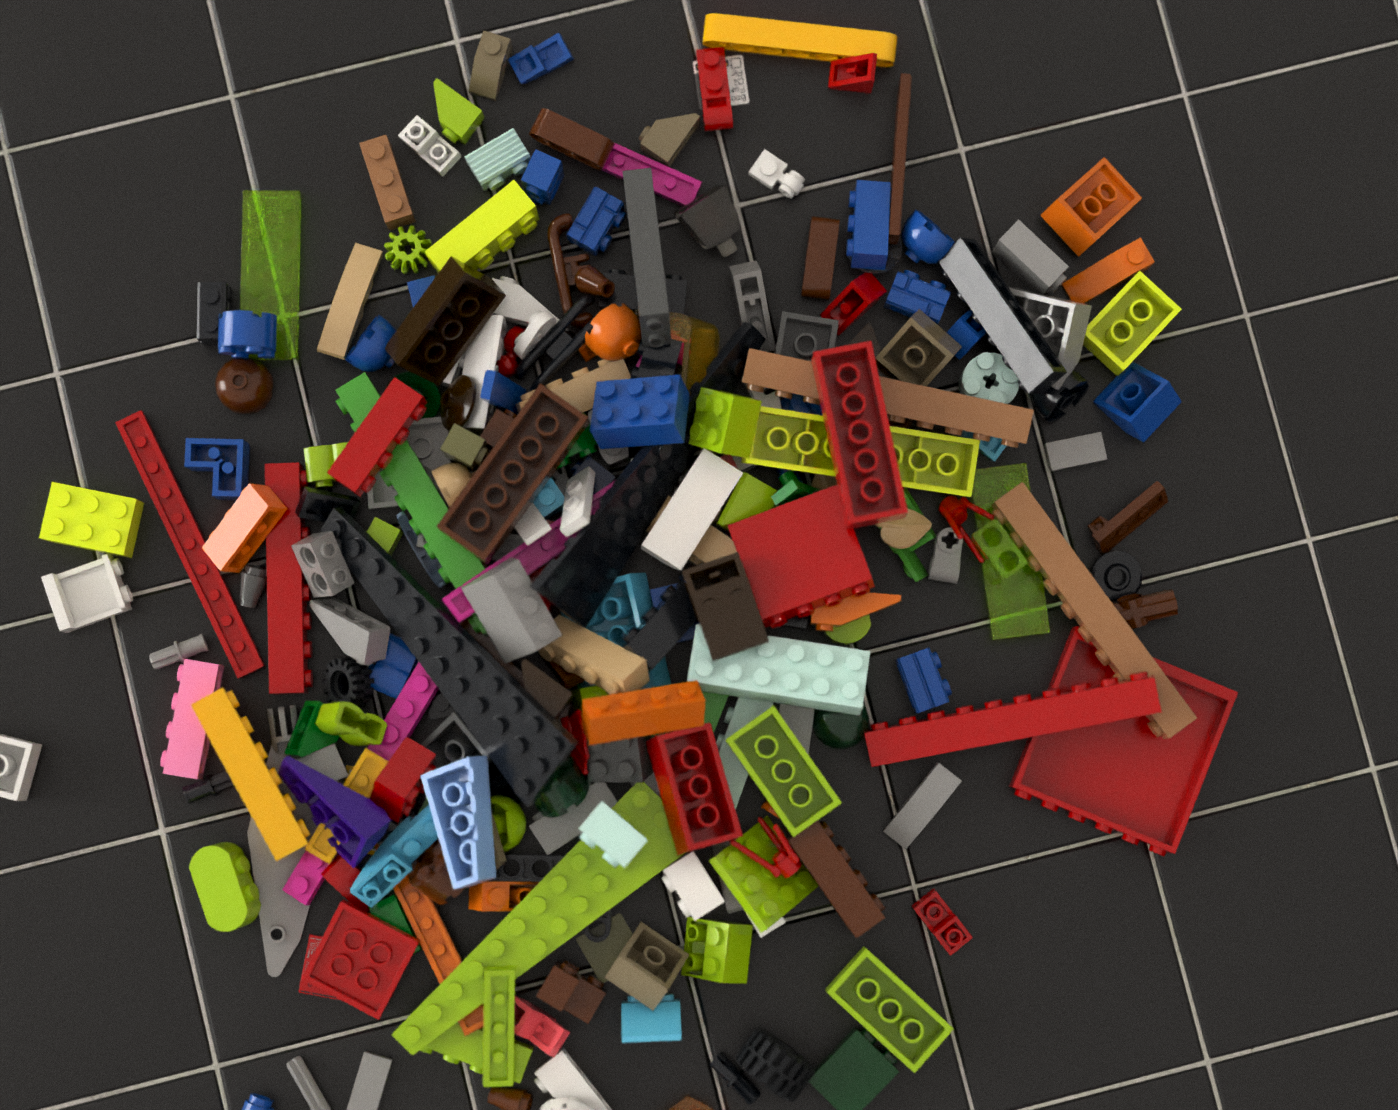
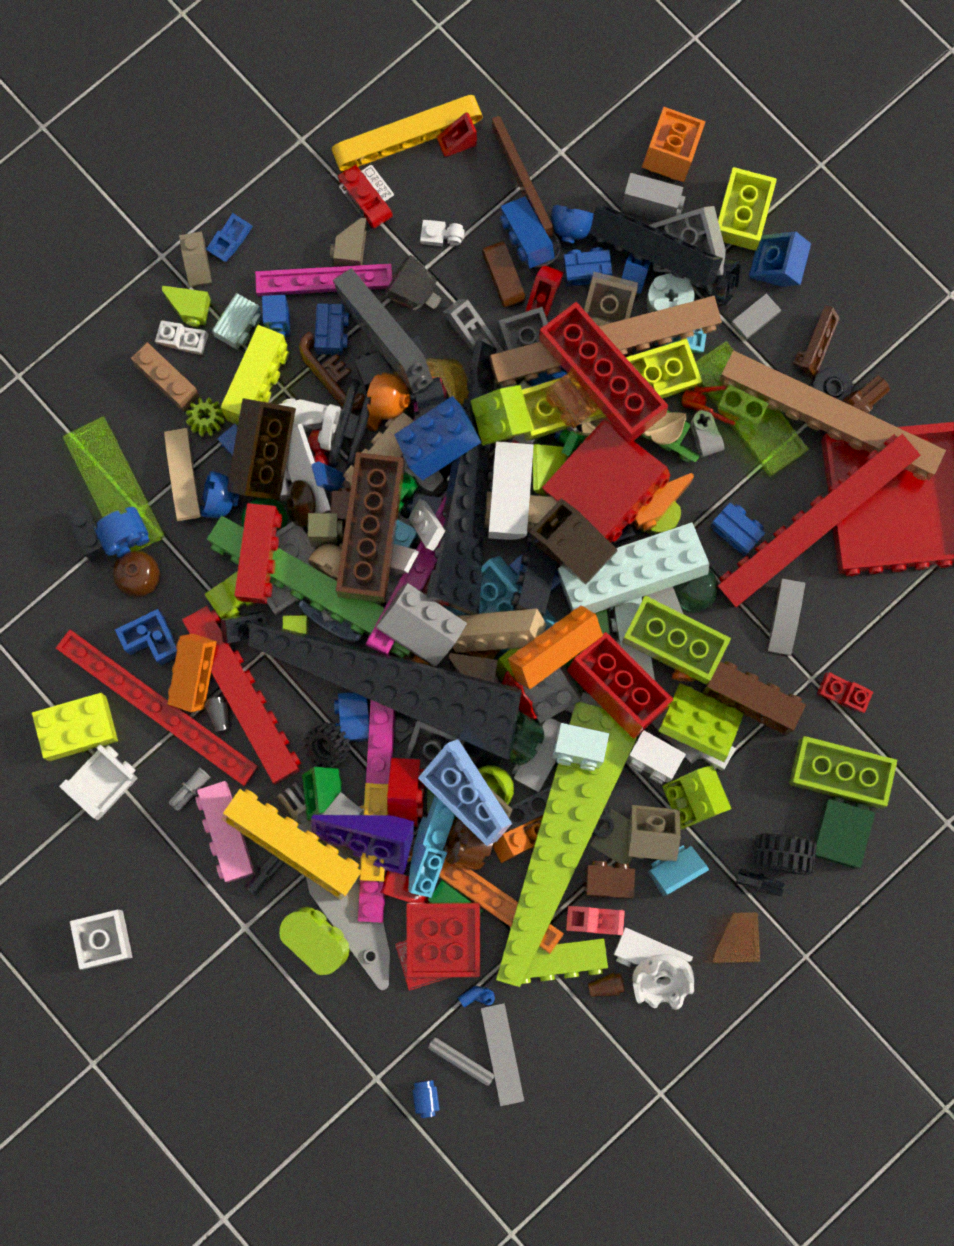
camera: 25 degrees left, 5 degrees down
(322, 564) = (263, 669): light grey brick -> none
(351, 724) = (346, 770): lime brick -> none
(353, 630) = (312, 705): light grey slope -> none
(369, 1035) = (477, 994): none -> blue arm
(498, 1026) = (571, 932): lime plate -> none
(571, 139) = (282, 279): reddish brown beam -> none
(592, 281) = (352, 369): reddish brown cone -> none
(785, 860) = (712, 703): red plant -> none
(809, 447) = (571, 400): none -> clear orange brick
(1109, 272) = (712, 180): orange slope -> none

